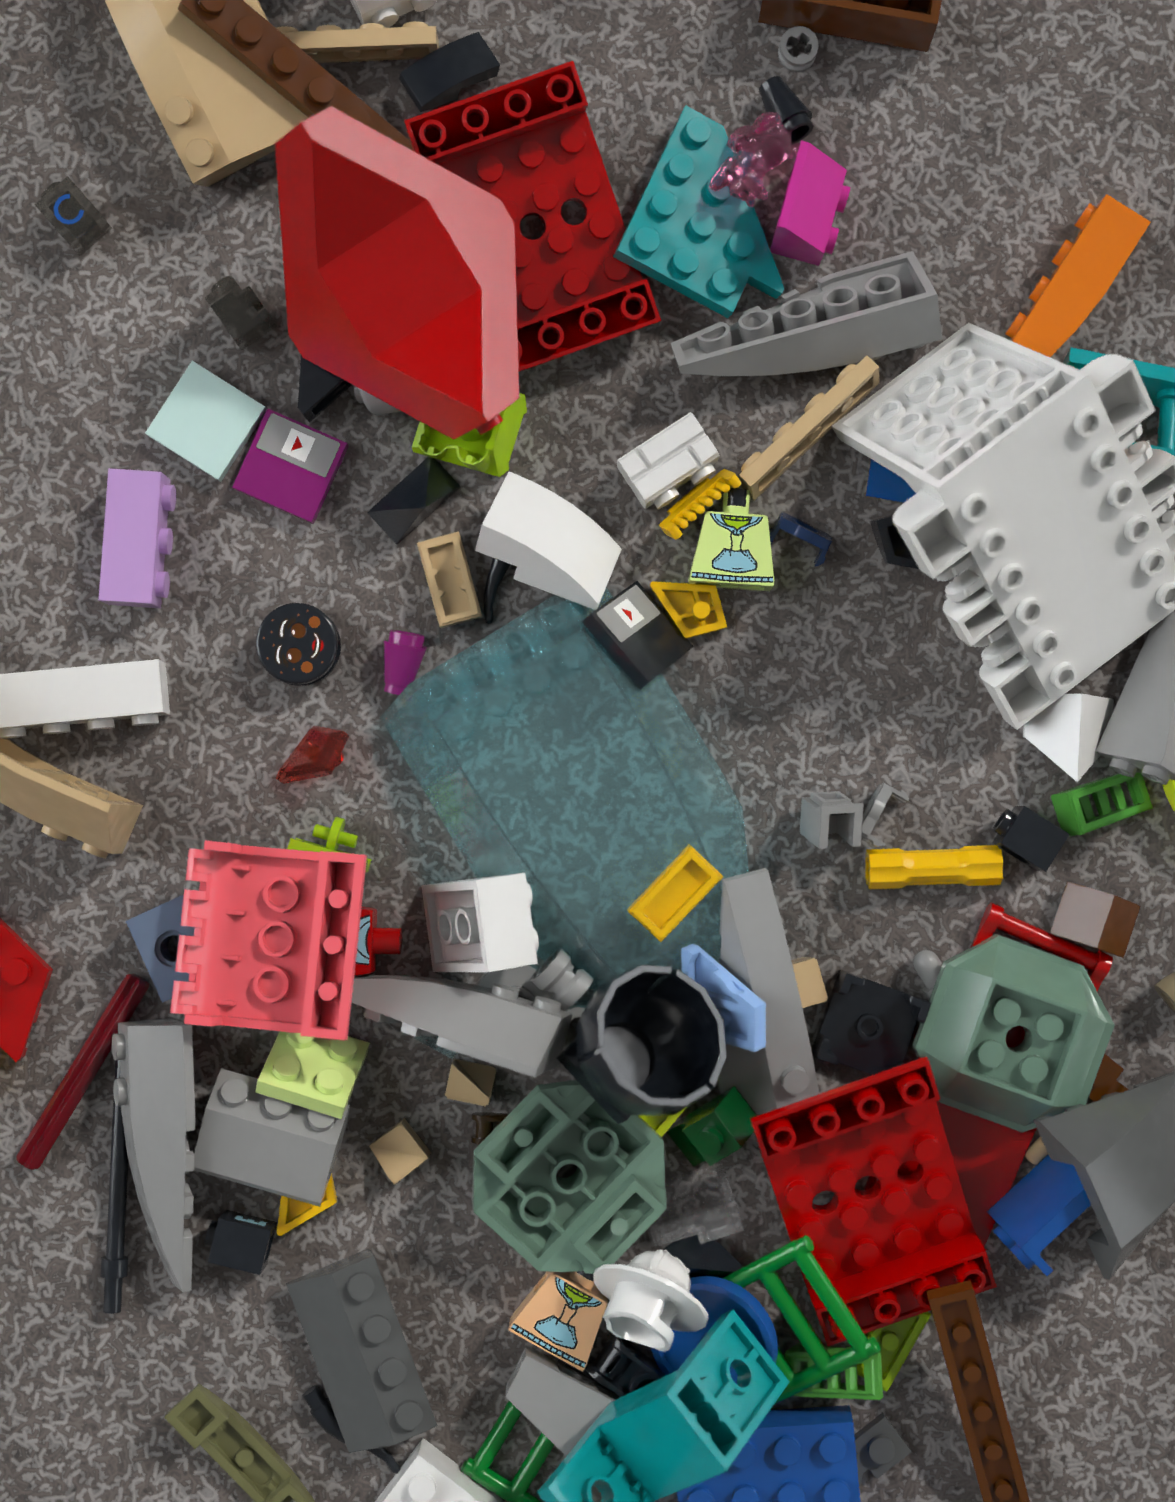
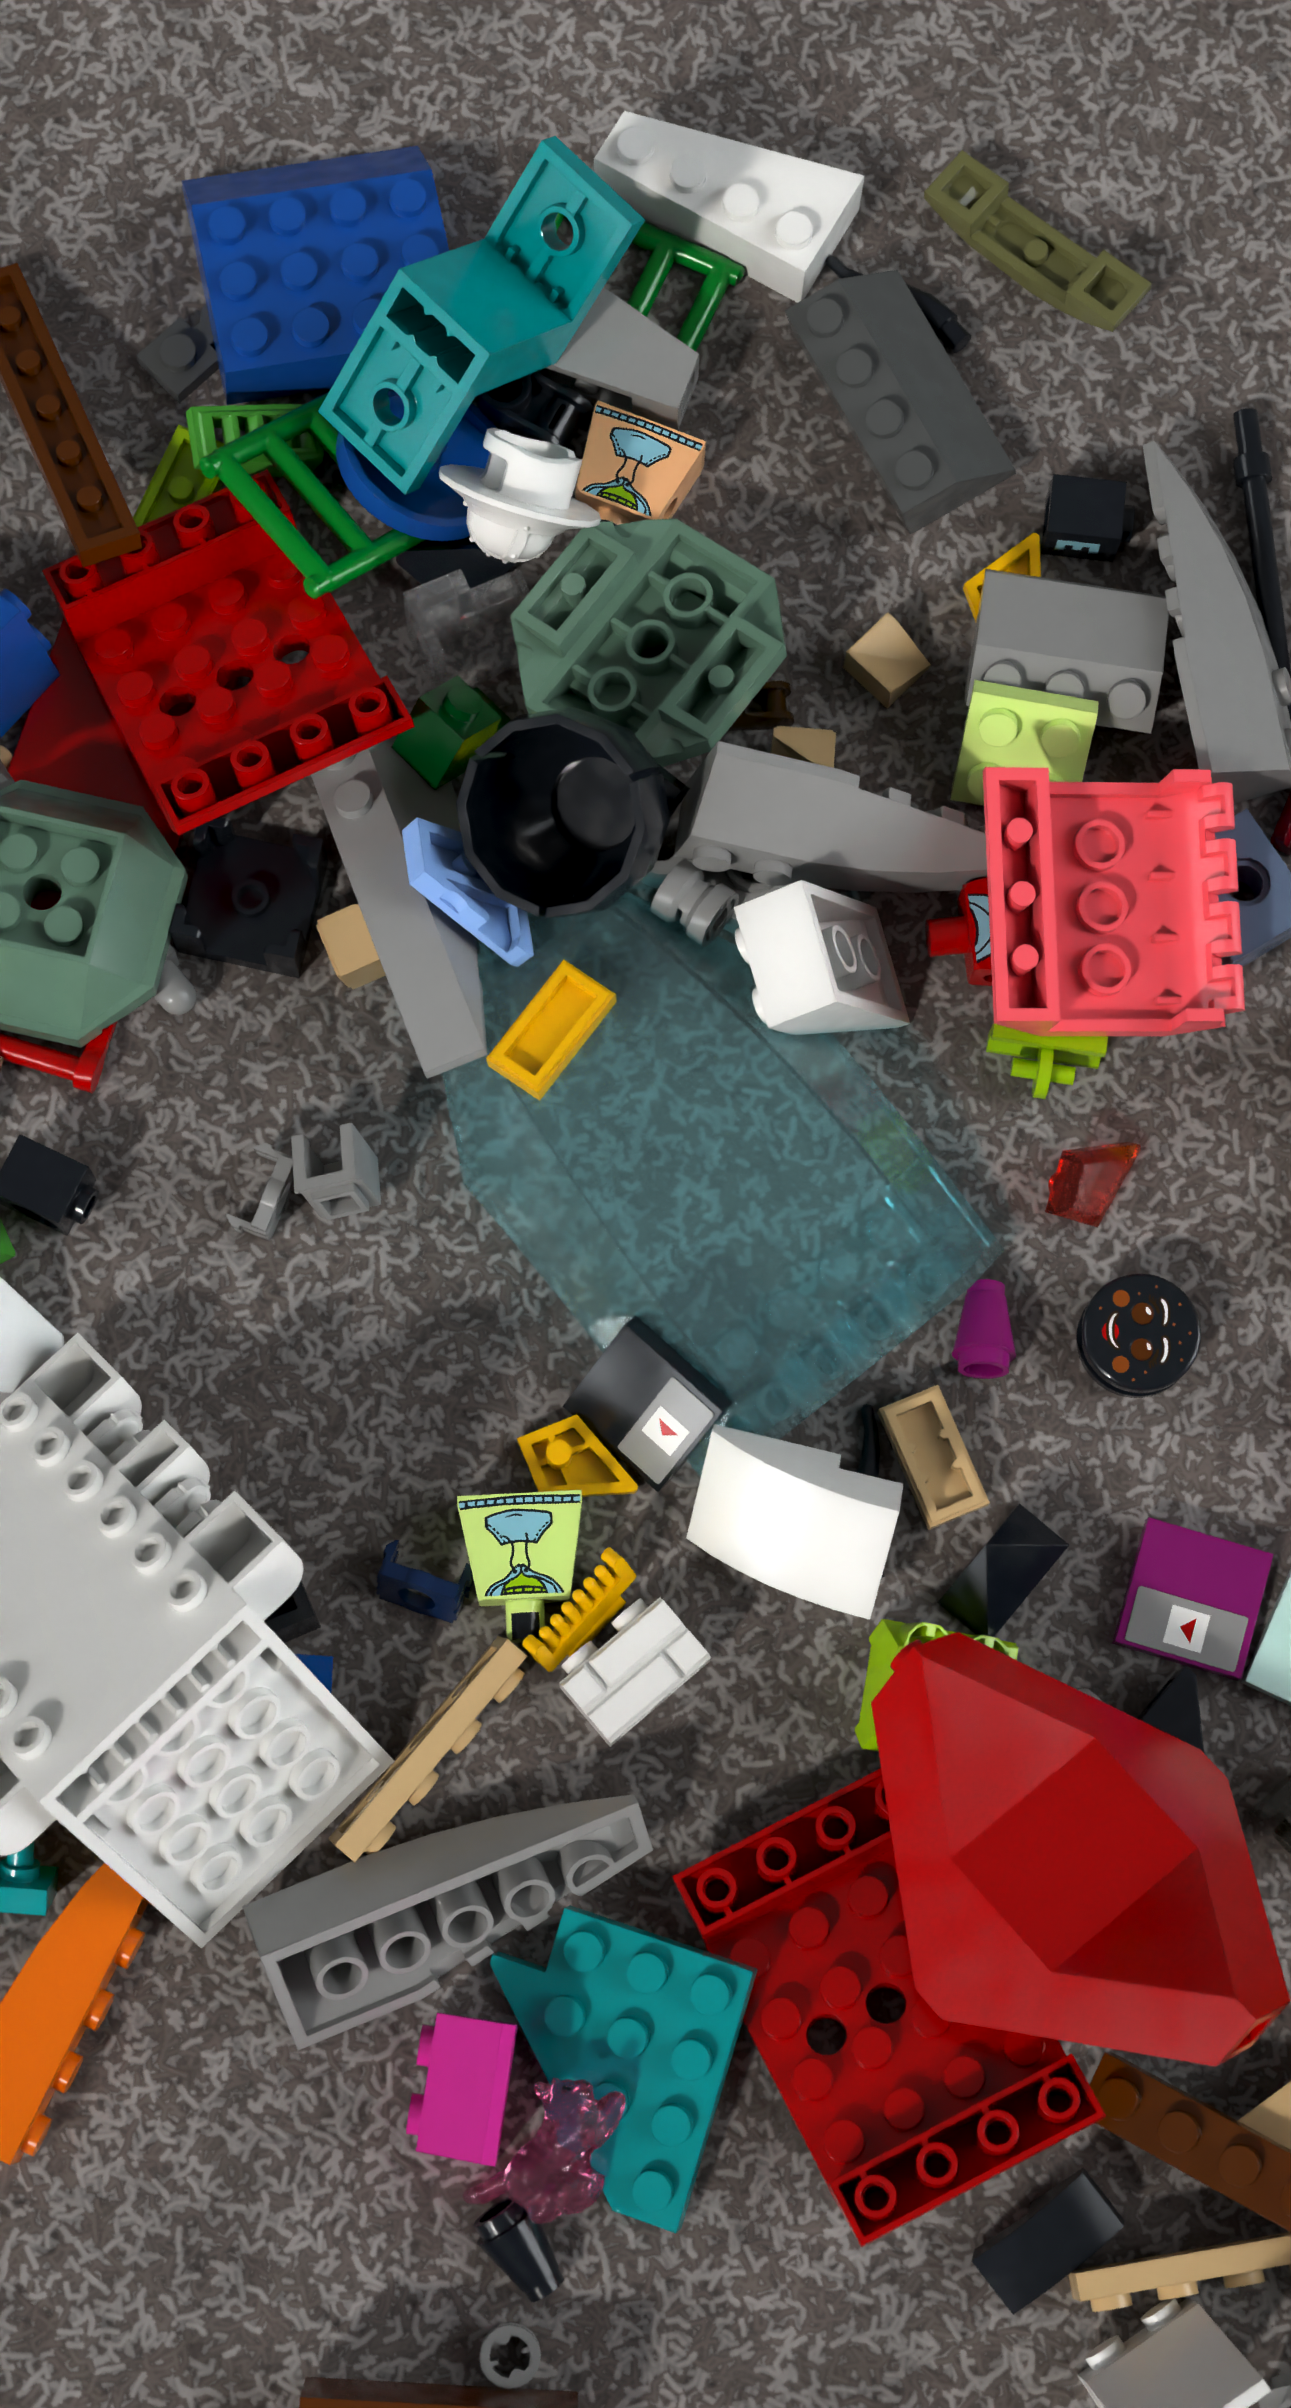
camera: 170 degrees right, 10 degrees down
(966, 866) = (132, 1136): yellow axle -> none

